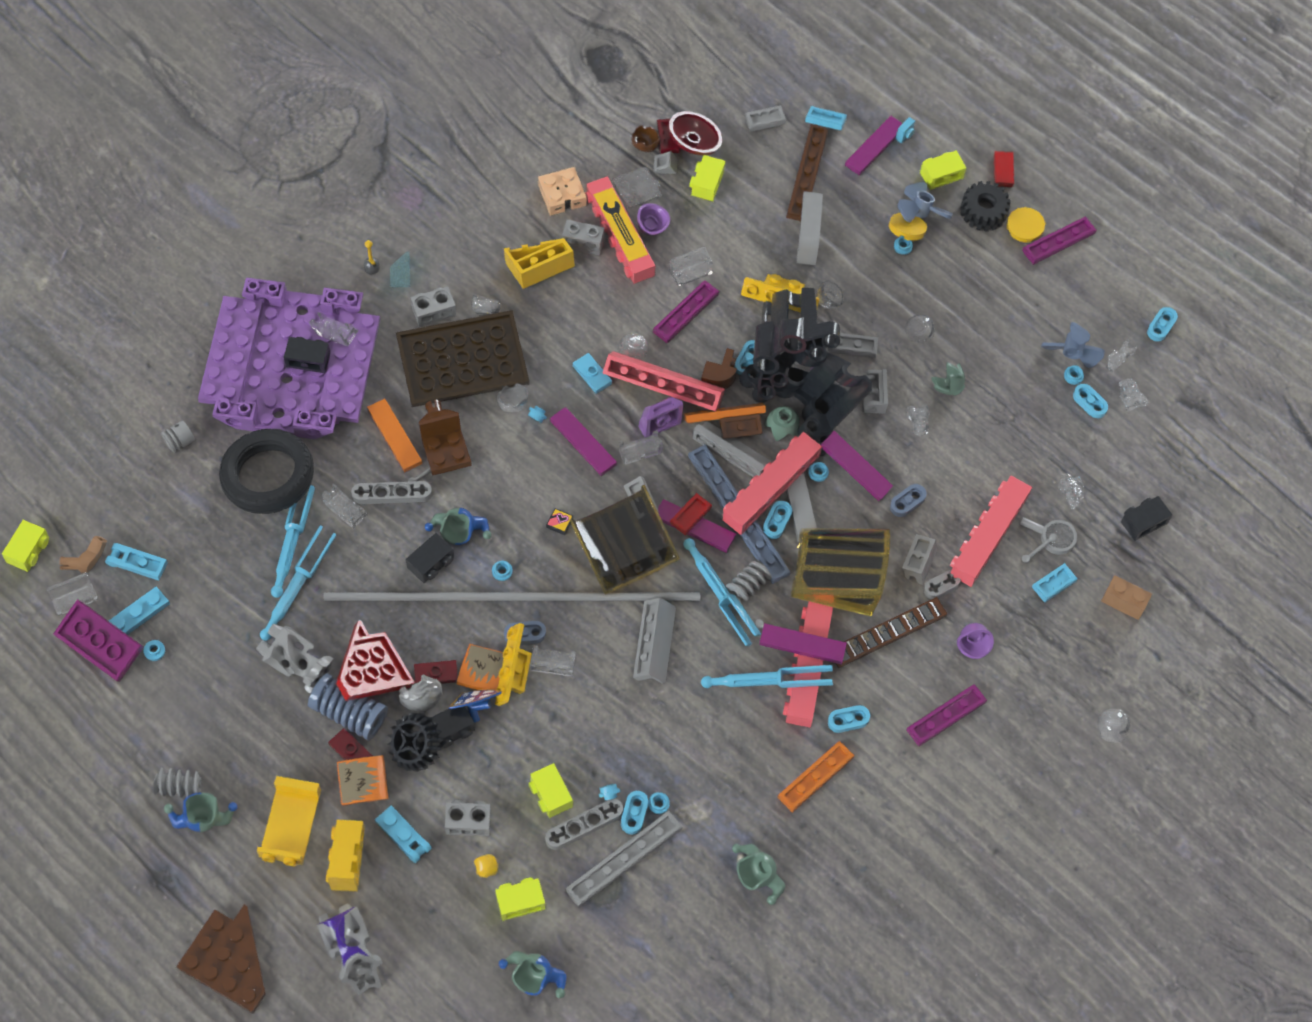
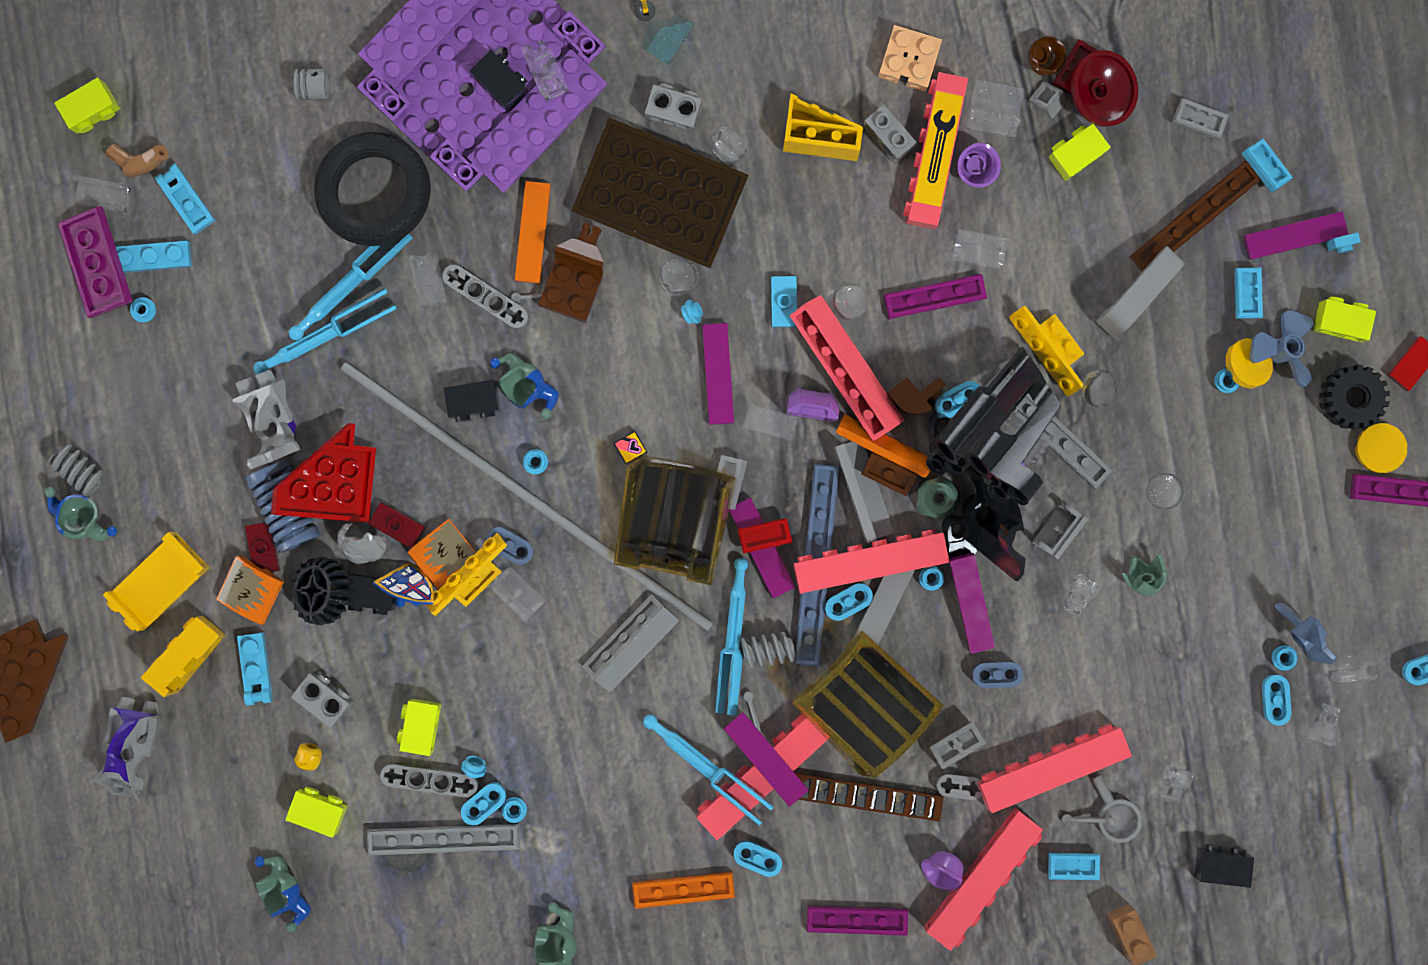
camera: 40 degrees right, 25 degrees up
(874, 191) = (1248, 293): none -> medium azure plate
(1005, 629) = (983, 879): none -> coral brick

